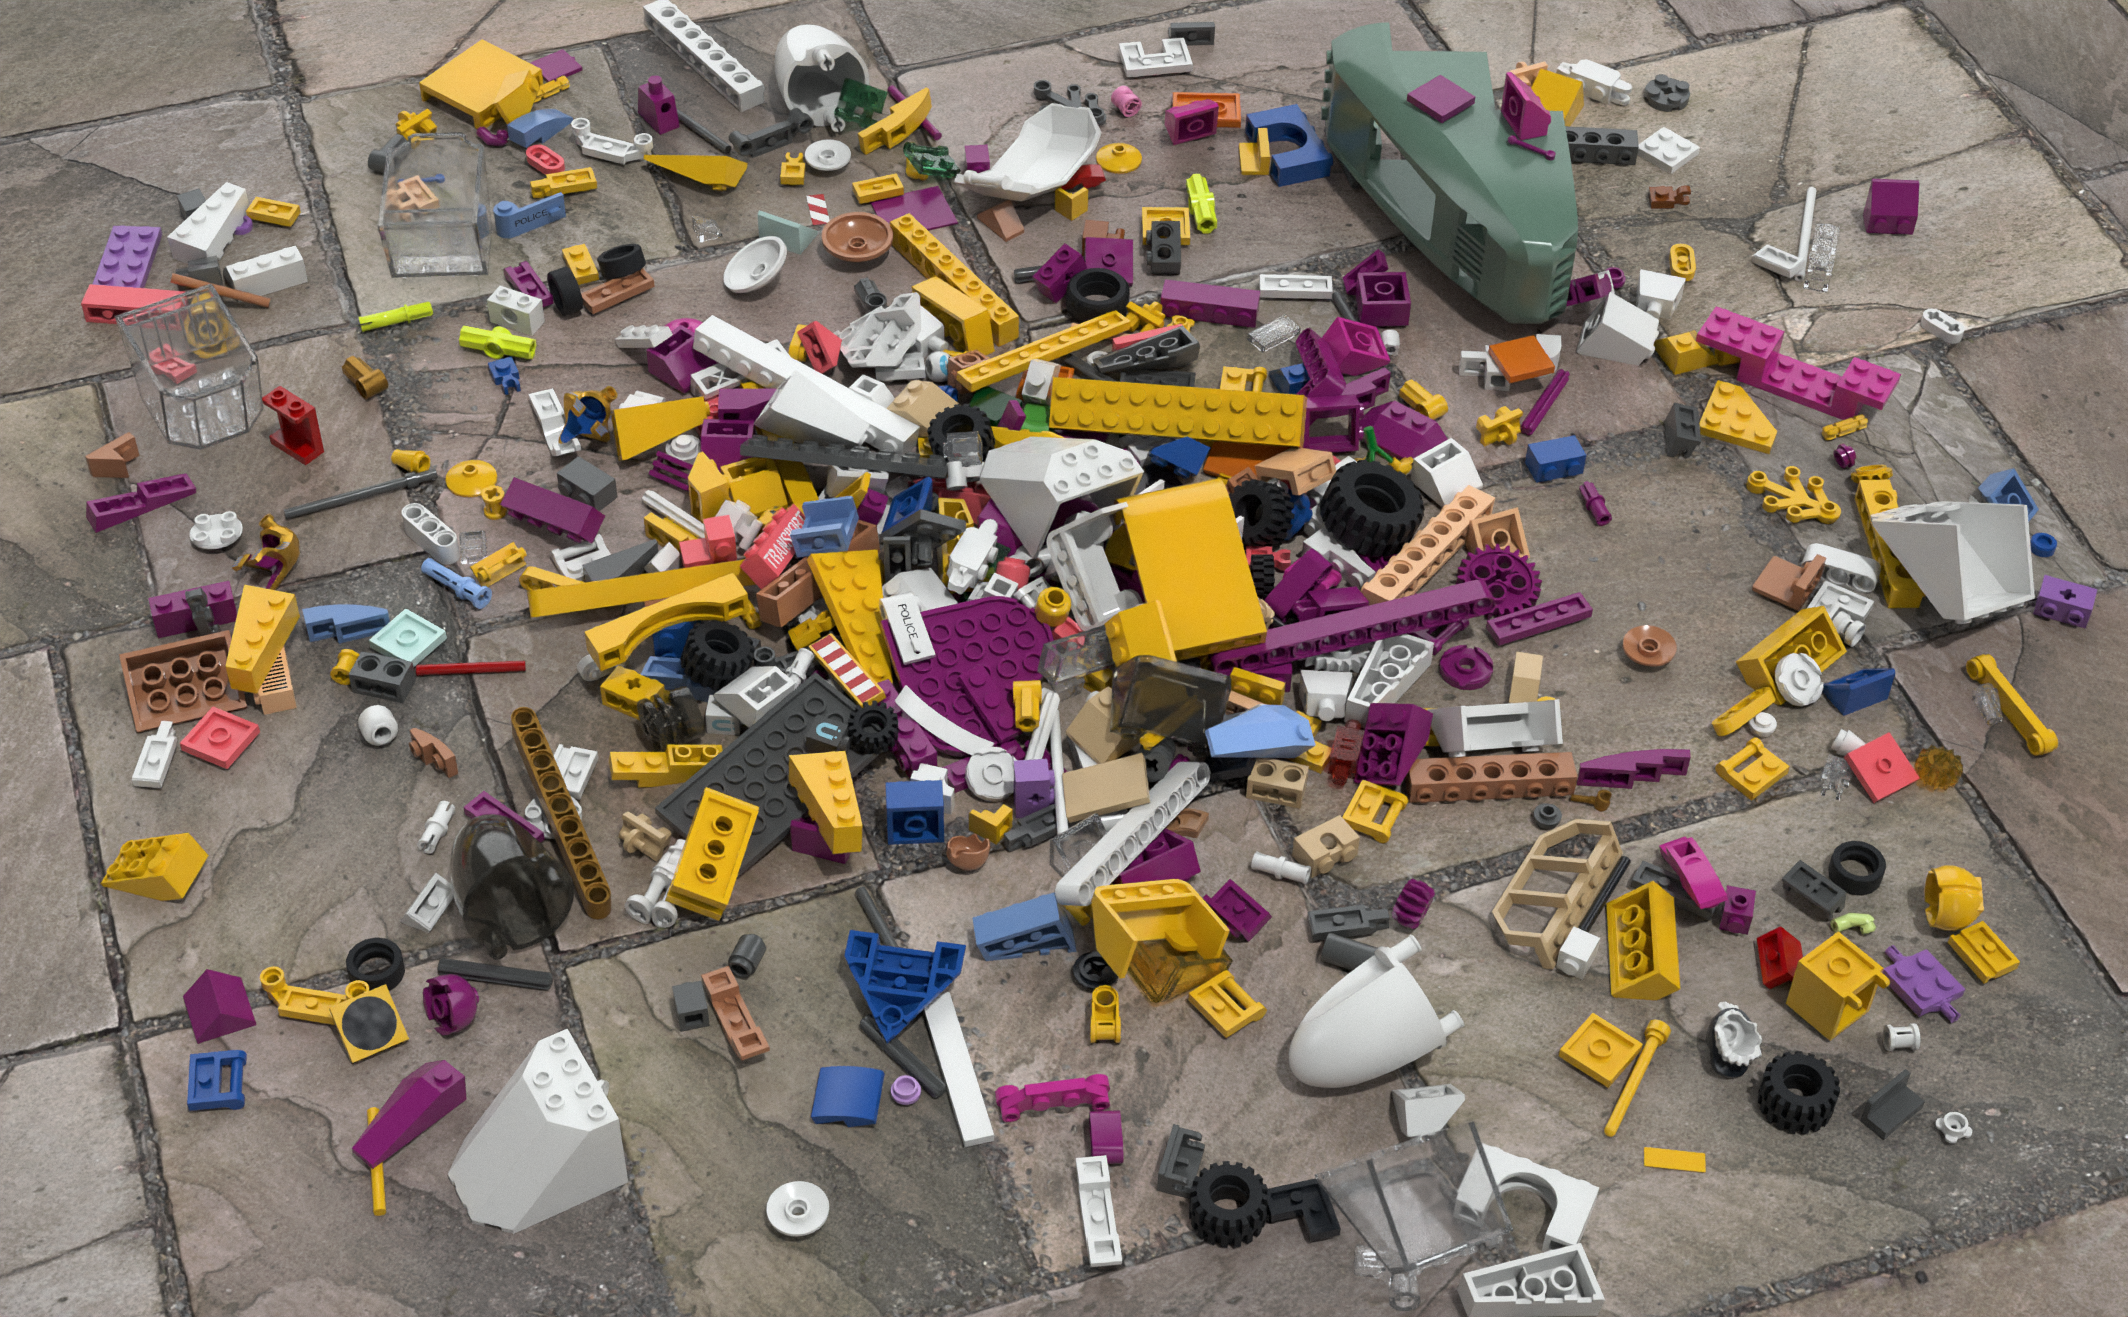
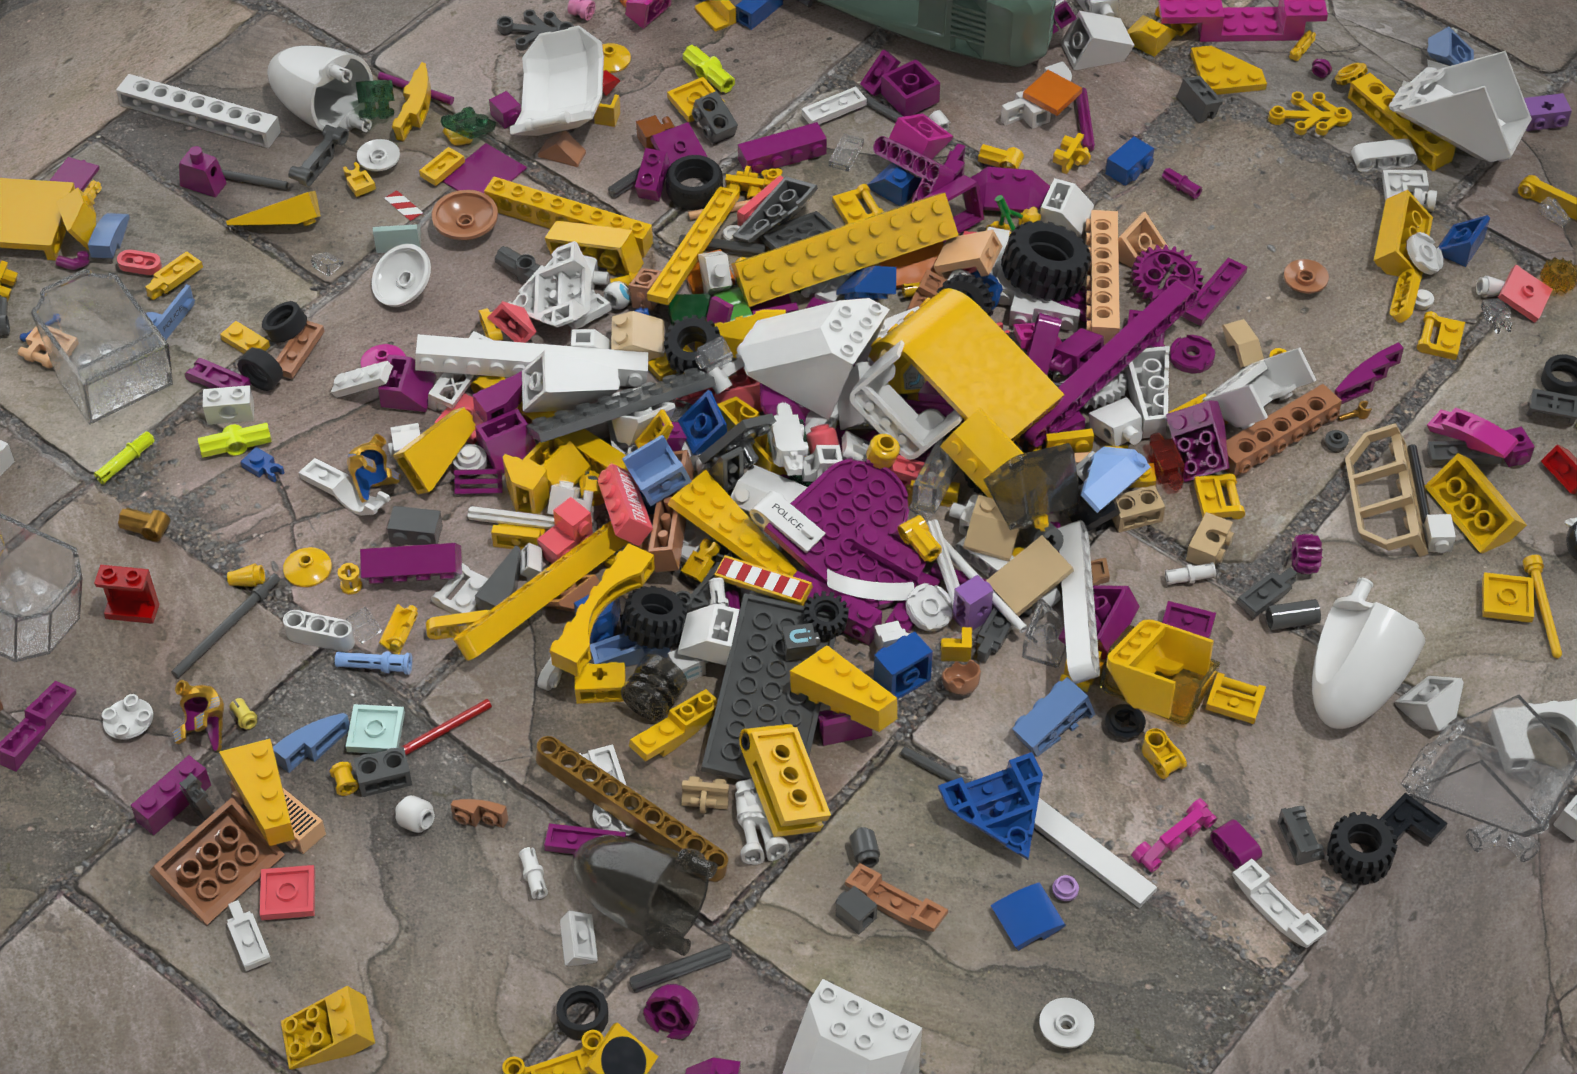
camera: 30 degrees left, 5 degrees up
(310, 576) = (246, 718): none -> light yellow pin
(610, 148) = (185, 227): white plate -> none
(904, 1058) = (1042, 863): dark grey axle -> none
(1789, 582) = (1359, 182): nougat bracket -> none

